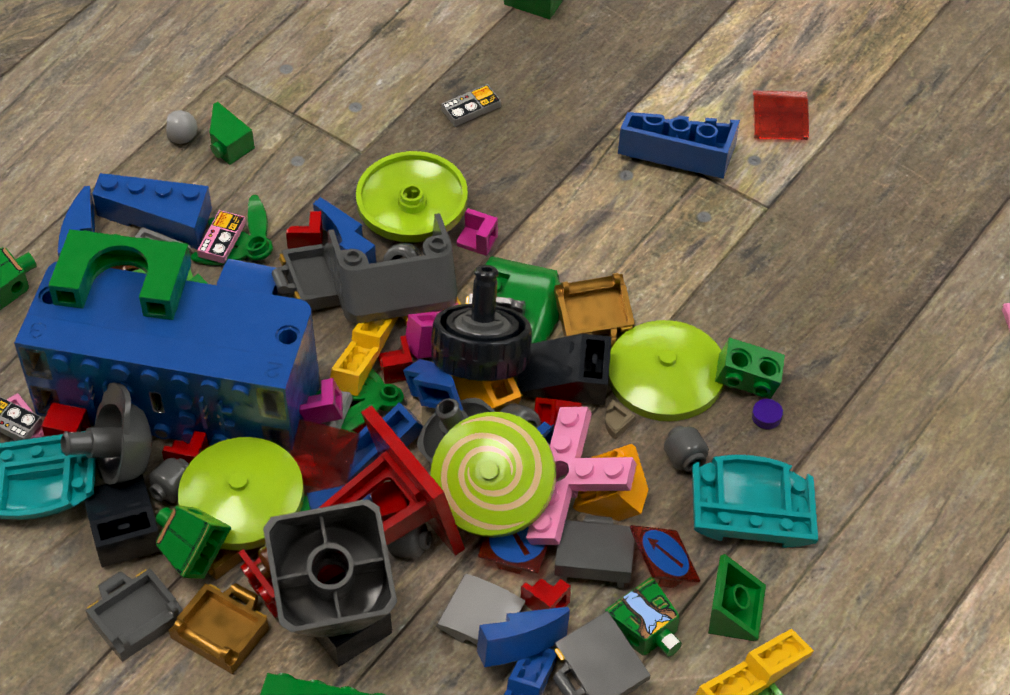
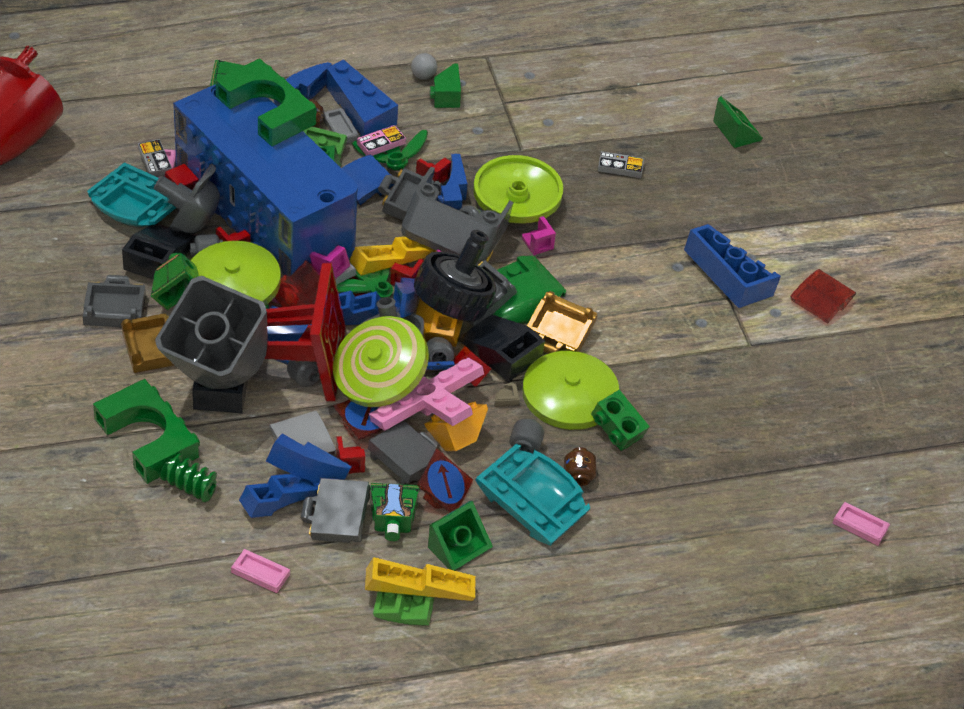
camera: 35 degrees right, 5 degrees down
(761, 440) = (581, 465): none -> reddish brown head
(767, 413) = (606, 456): dark purple tile -> none

